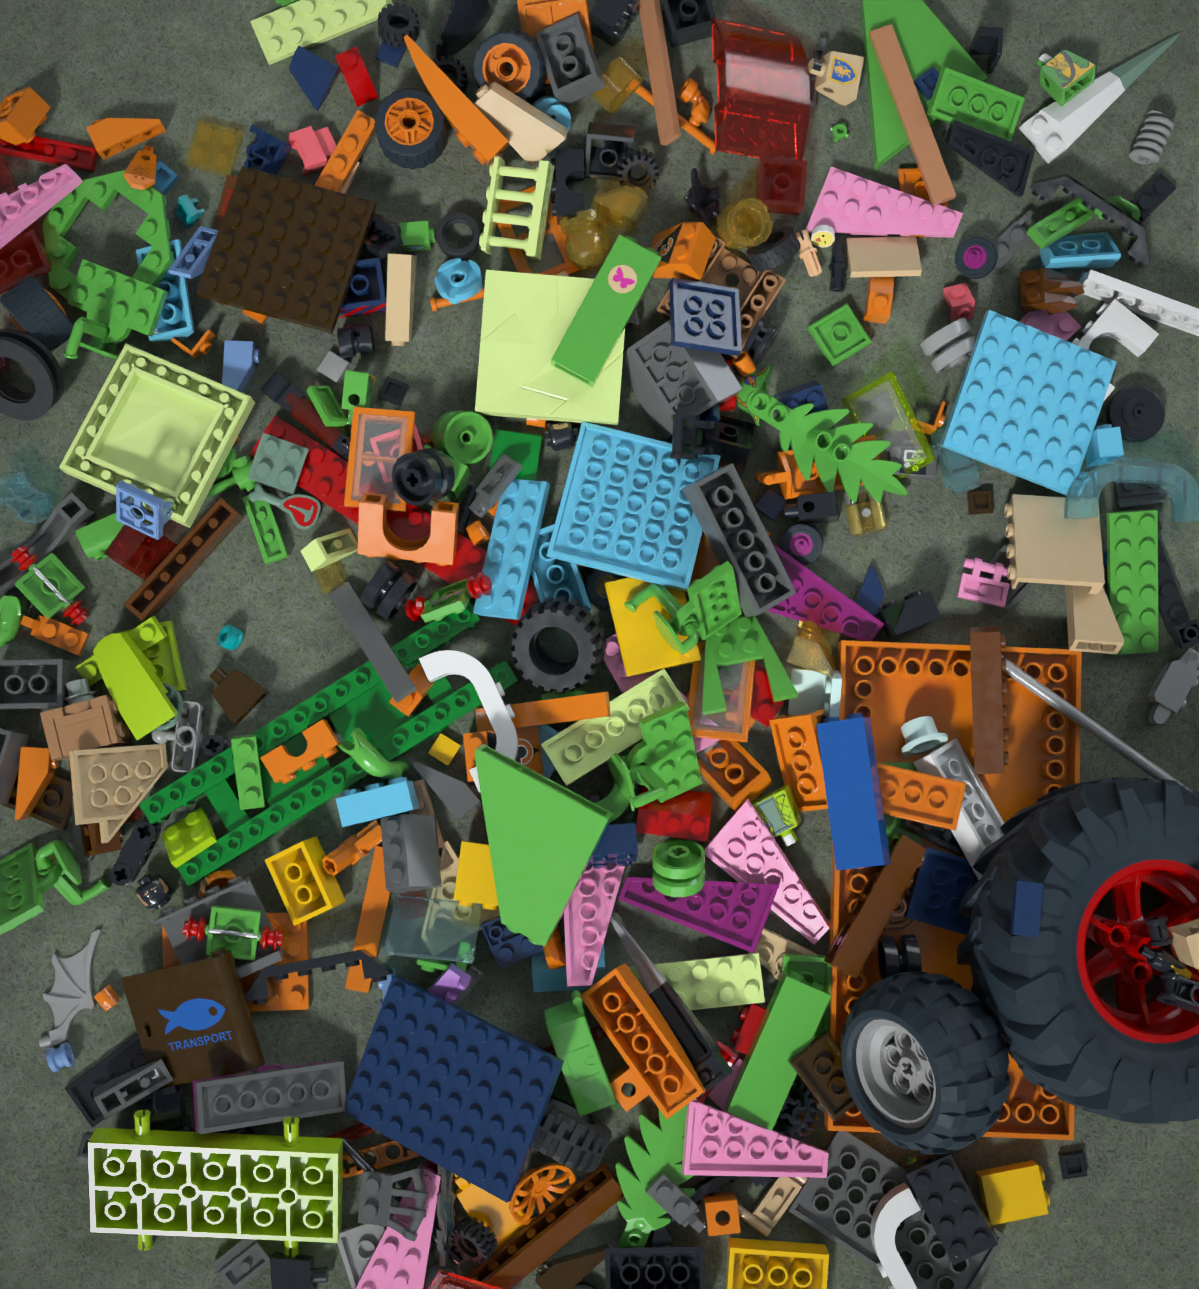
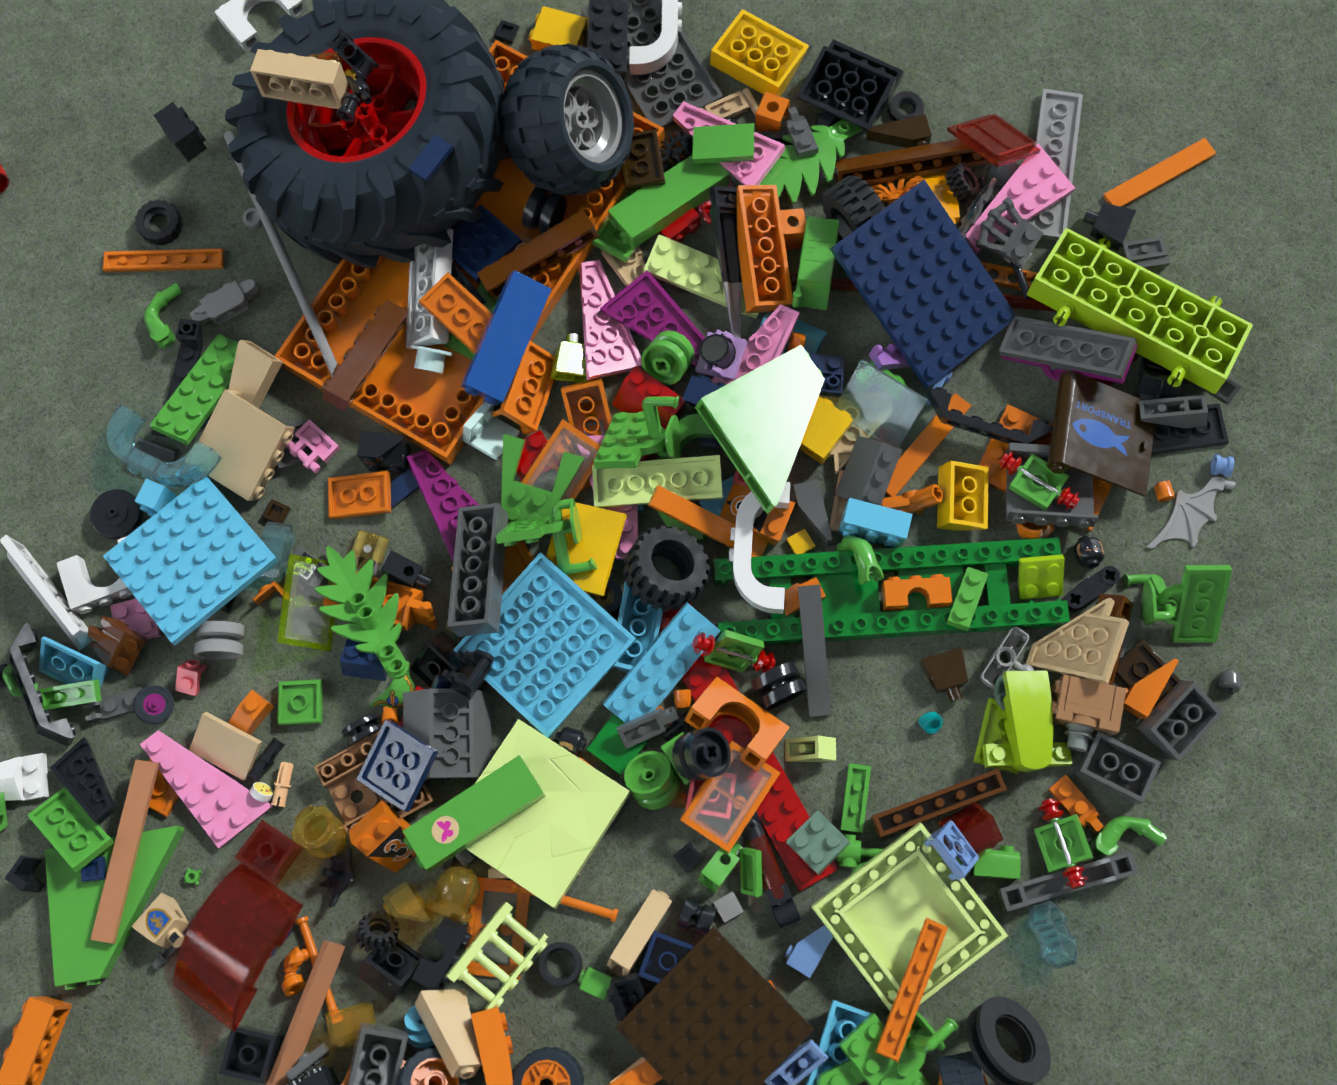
camera: 145 degrees left, 10 degrees down
(123, 372) = (911, 989): none -> orange tile
(202, 347) = (831, 985): orange bracket -> none
(209, 740) = (991, 637): black bush -> none
(301, 508) = (817, 796): sand green piece -> none
(329, 578) = (823, 726): clear yellow tile -> none
(462, 290) = (573, 931): medium azure plate -> none
(627, 898) = (718, 353): none -> piece
(634, 32) = (307, 1062): none -> dark grey plate
(750, 1141) = (723, 143): none -> bright green tile
(770, 504) = (437, 596): dark blue tile -> none
(775, 251) = (306, 788): black tyre -> none
(802, 542) = (430, 552): black wheel -> none
(811, 649) = (474, 464): clear yellow slope -> none
(908, 562) = (359, 495): none -> orange tile

